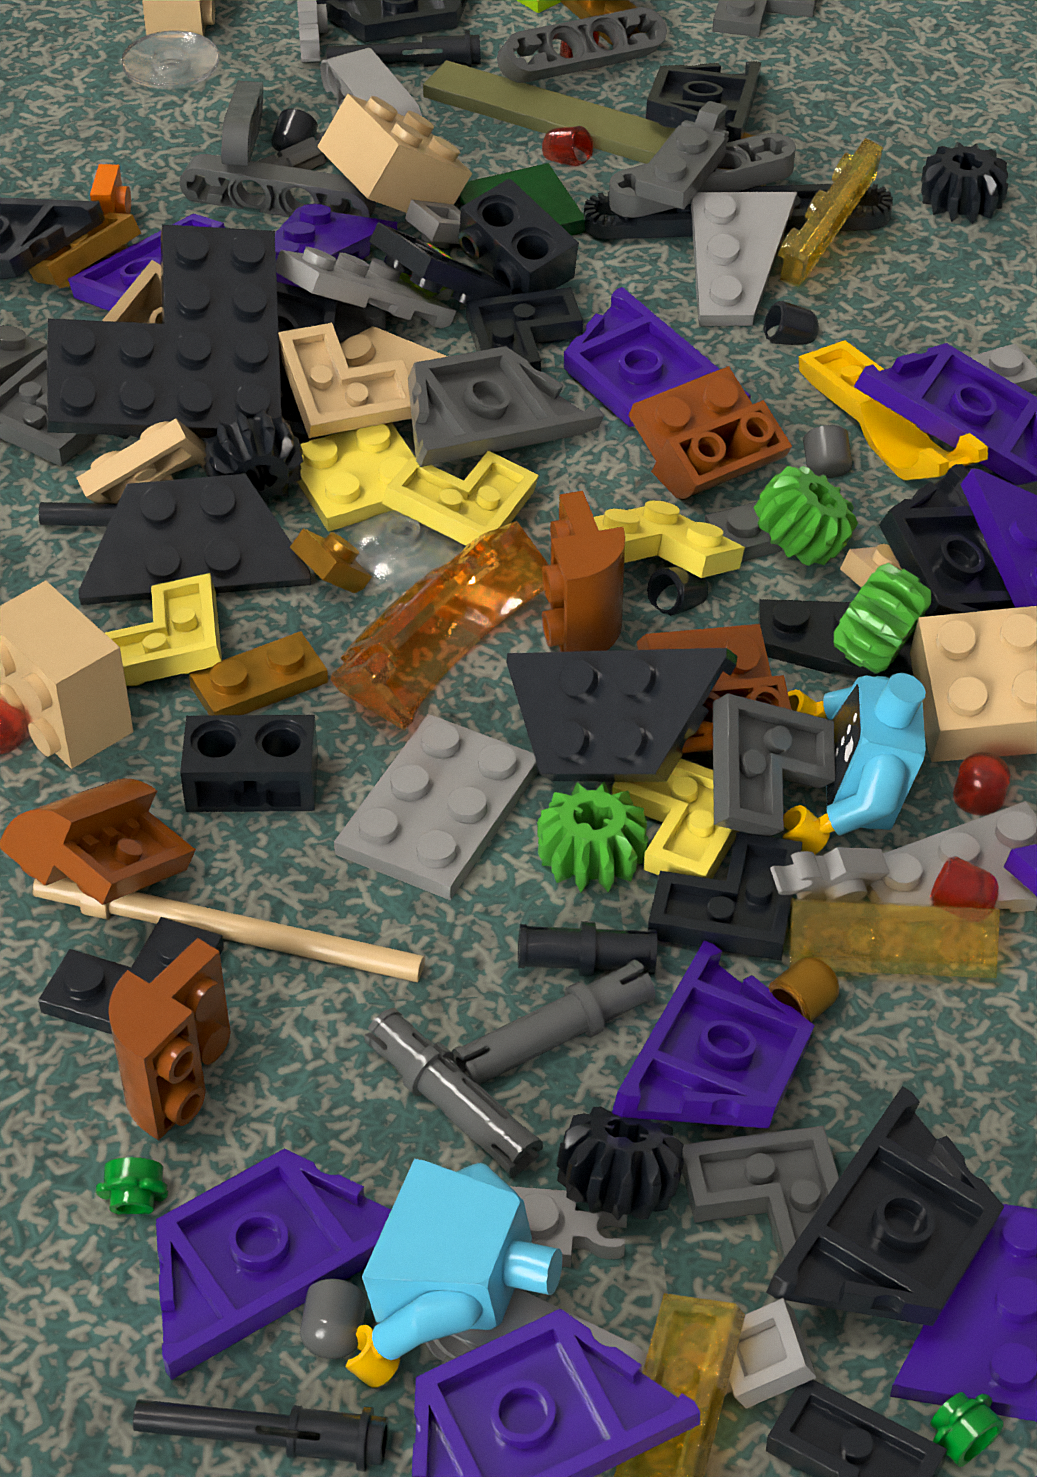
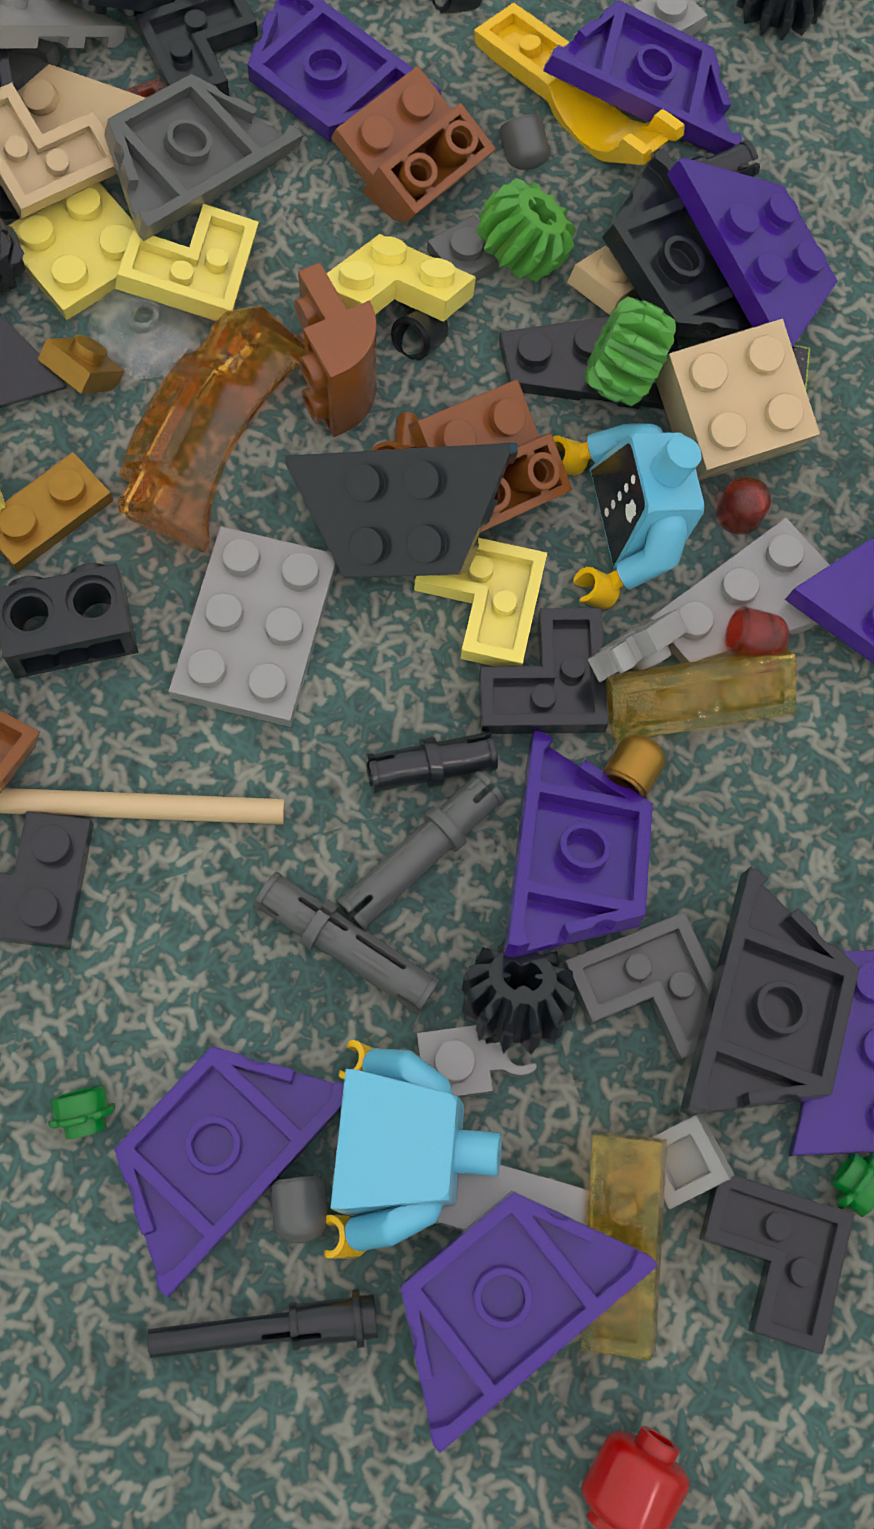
camera: 20 degrees left, 25 degrees up
(166, 1035) = (65, 974): dark orange brick -> none
(592, 836) = (400, 656): bright green gear -> none
(756, 751) = (541, 530): dark grey plate -> none

